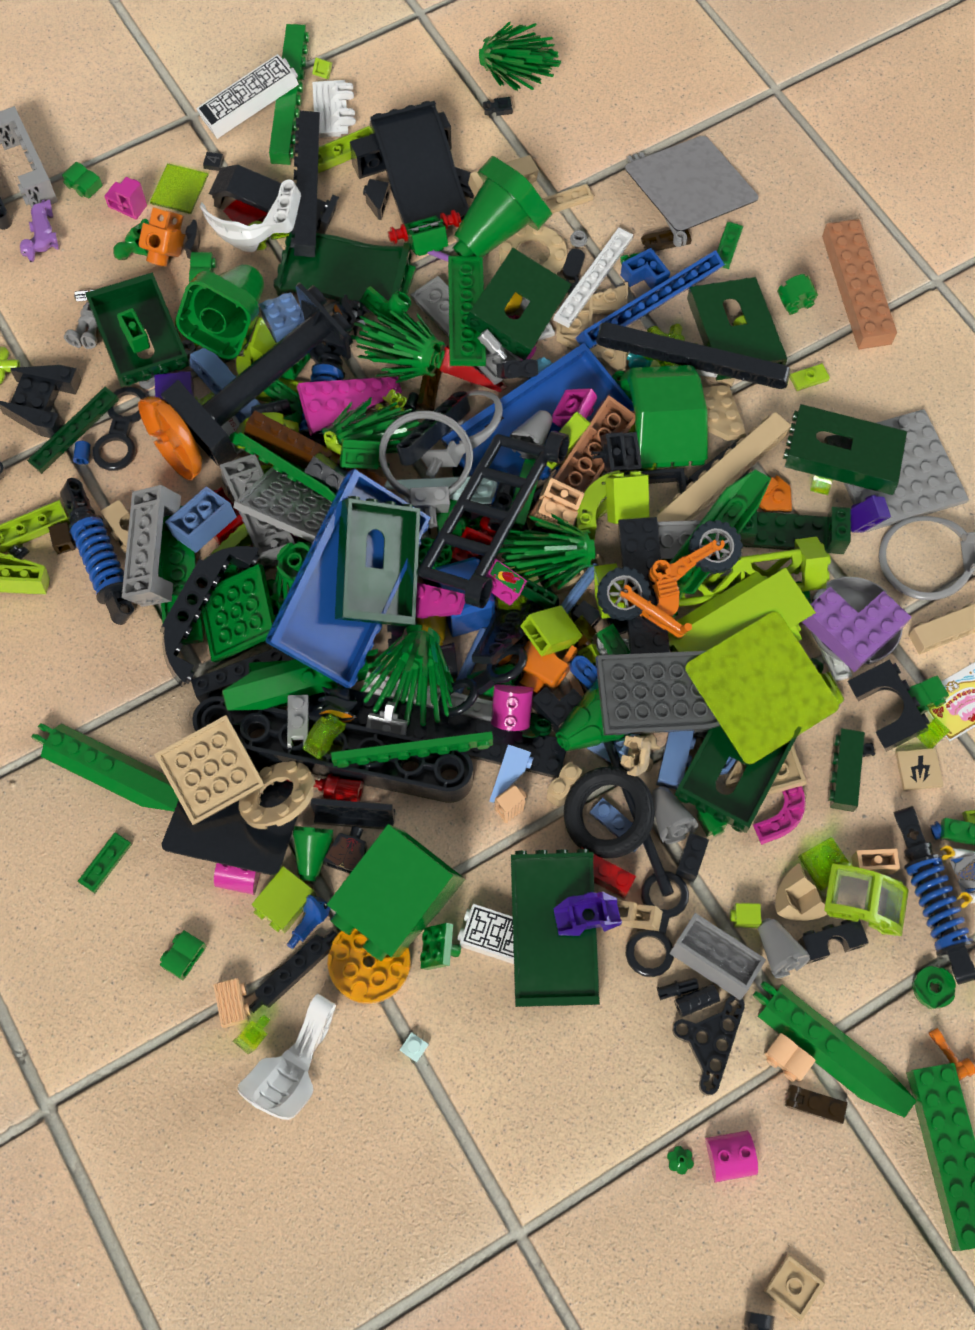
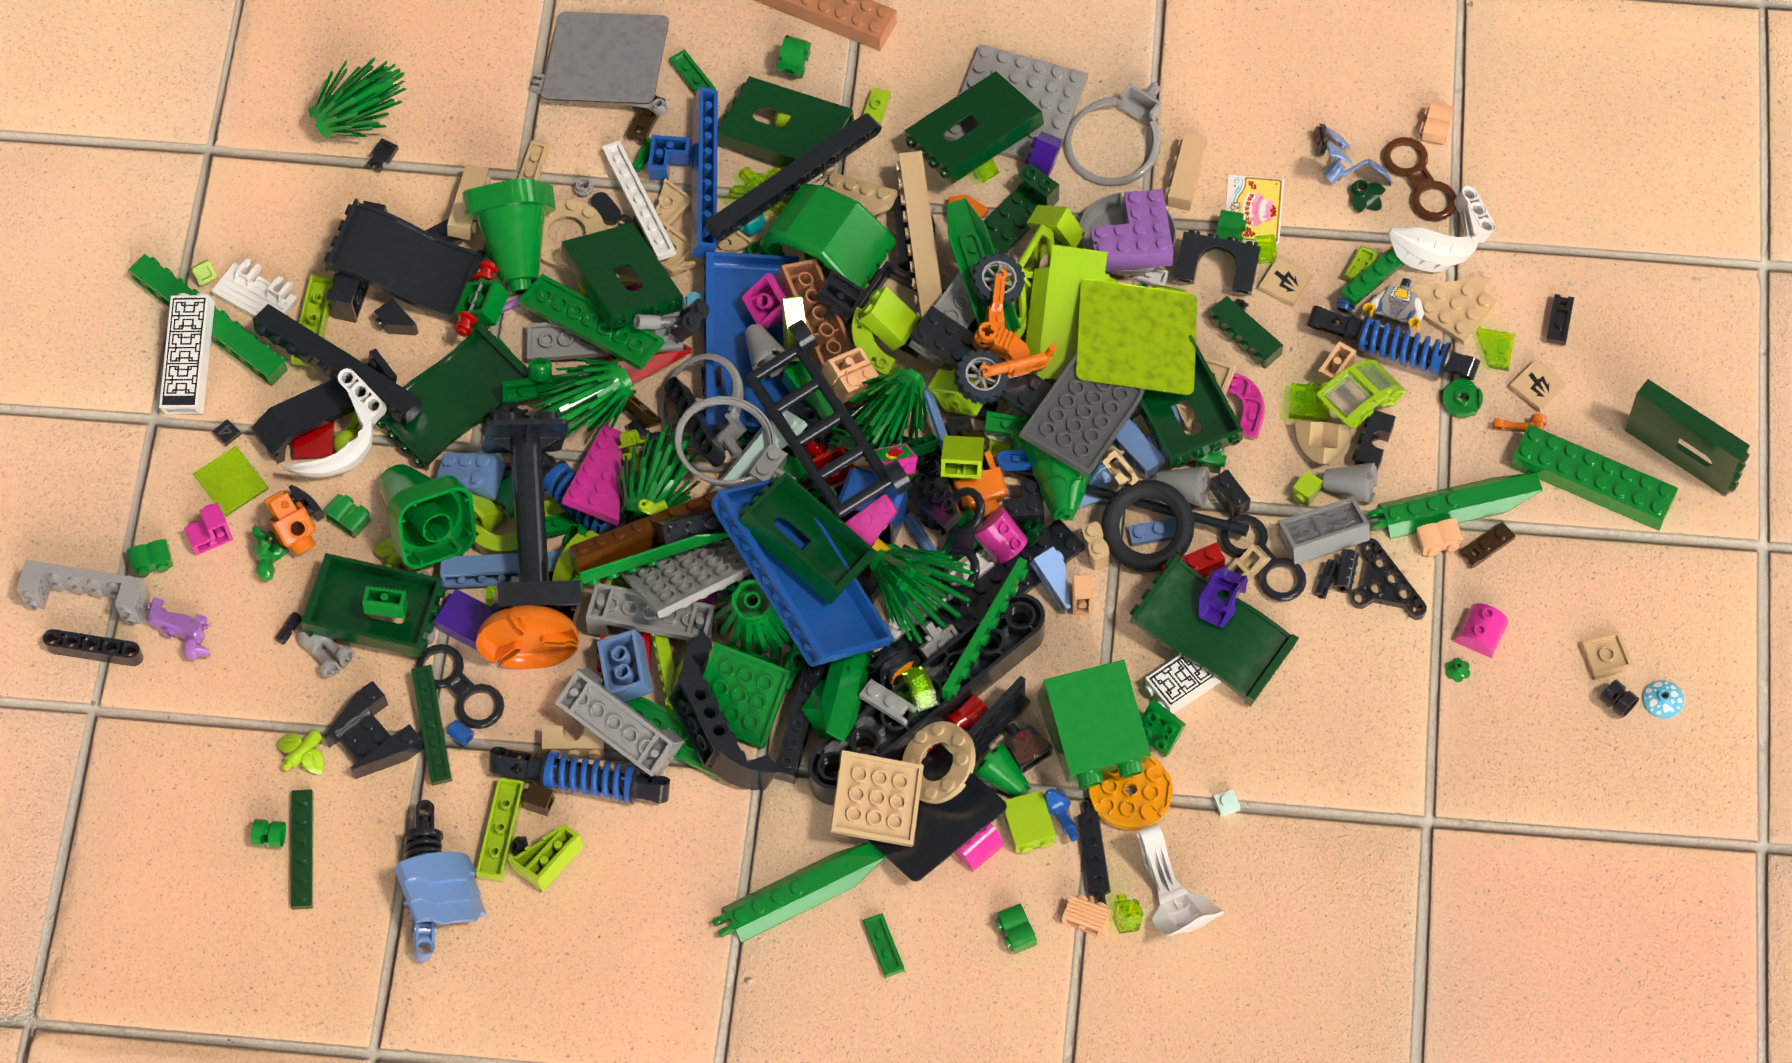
camera: 50 degrees left, 5 degrees down
(279, 406) = (558, 541): black axle -> none
(359, 454) = (682, 491): green plate -> none

